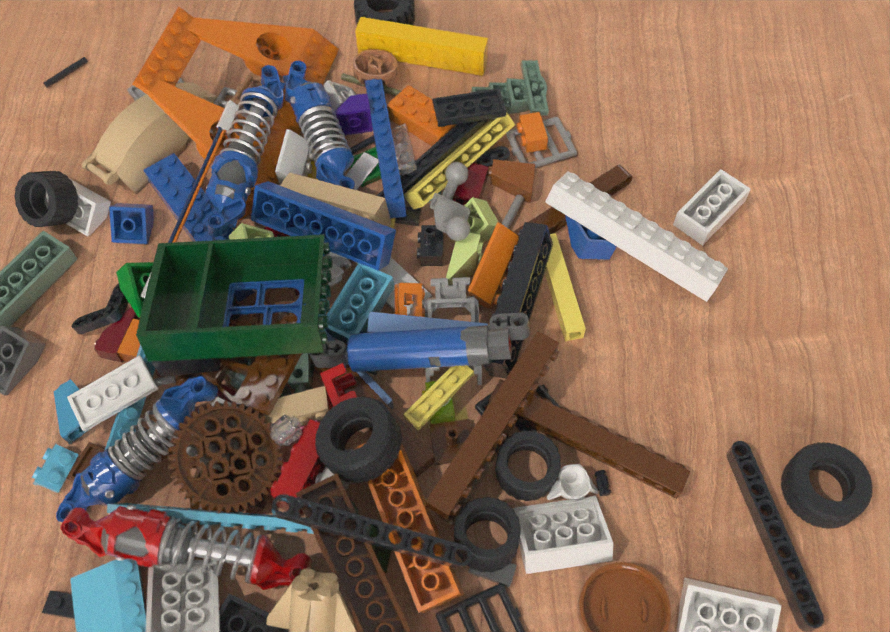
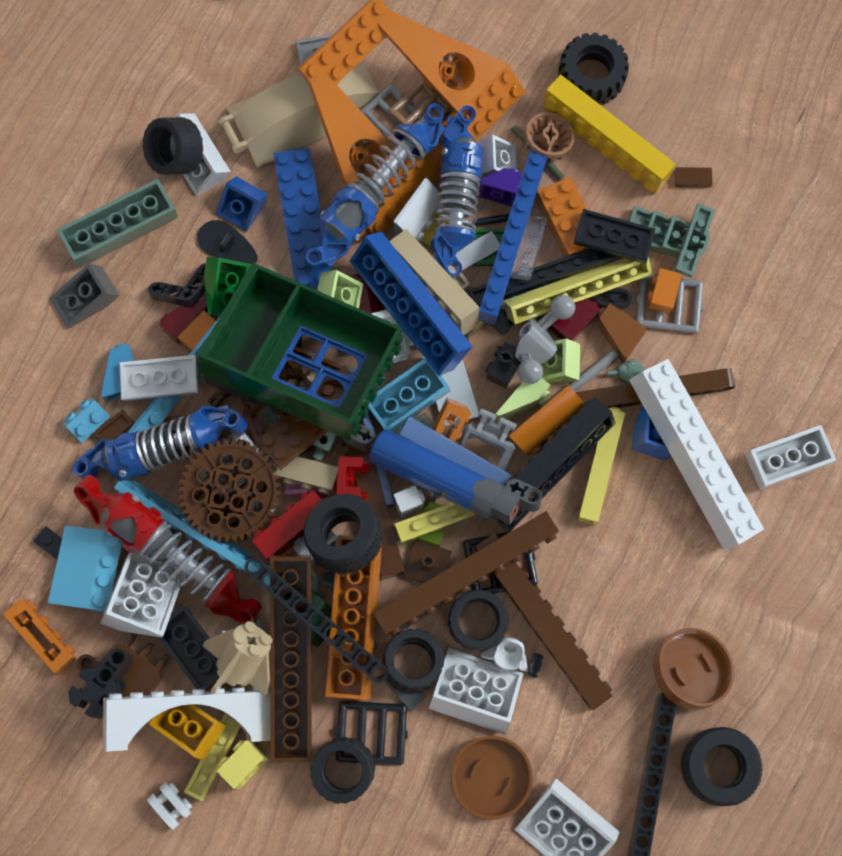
camera: 20 degrees right, 15 degrees up
(122, 254) = (225, 242): none -> black shield
(223, 127) = (367, 149): piece -> none
(286, 430) = (288, 491): clear head -> none
(366, 501) = (327, 580): none -> dark grey tile
(405, 391) = (408, 501): none -> white brick
(505, 51) = (693, 177): none -> reddish brown tile
(537, 205) = (627, 370): none -> sand green piece
(745, 411) = (693, 669): none -> dark orange piece

